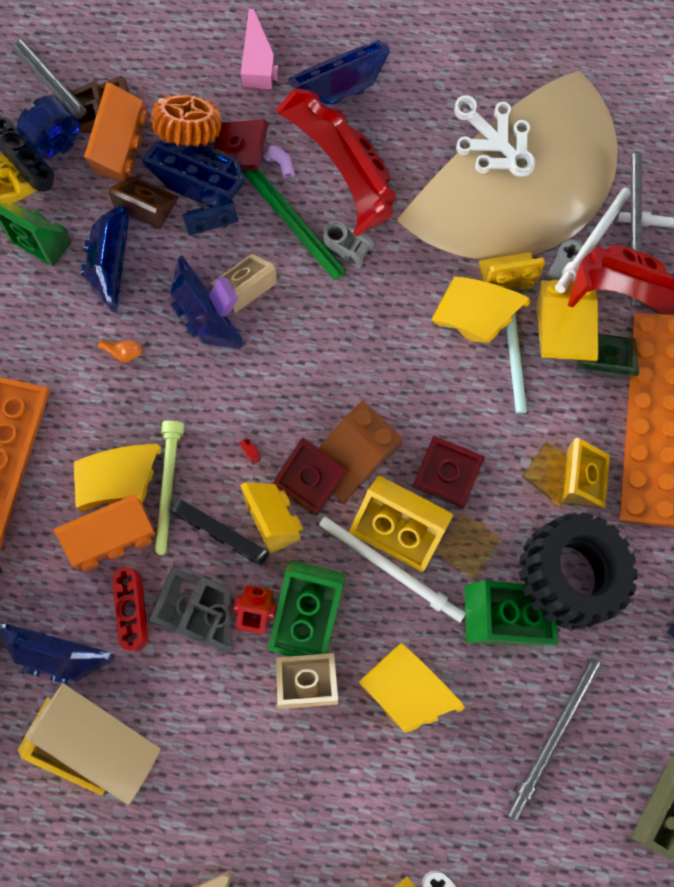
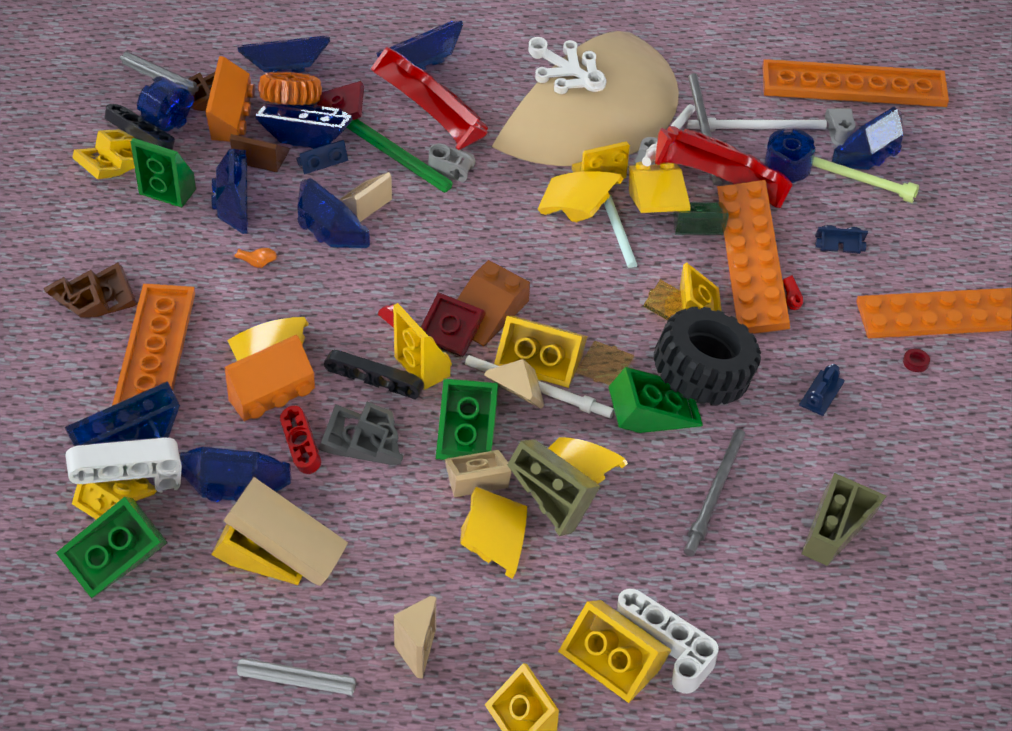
camera: 10 degrees left, 25 degrees down
(172, 432) = (316, 309): yellowish green piece -> none
(187, 66) = (285, 54): none -> clear blue wedge
(223, 296) = (349, 195): medium lavender tile -> none
(255, 609) = (419, 432): red brick -> none
(258, 59) = (346, 45): bright pink slope -> none
(280, 156) = (382, 114): lavender arm -> none
(313, 764) = (495, 529): none -> yellow slope
(366, 578) = (518, 379): none -> tan slope
(381, 726) = (554, 483): none -> olive wedge
(448, 472) = (576, 311): dark red plate -> none

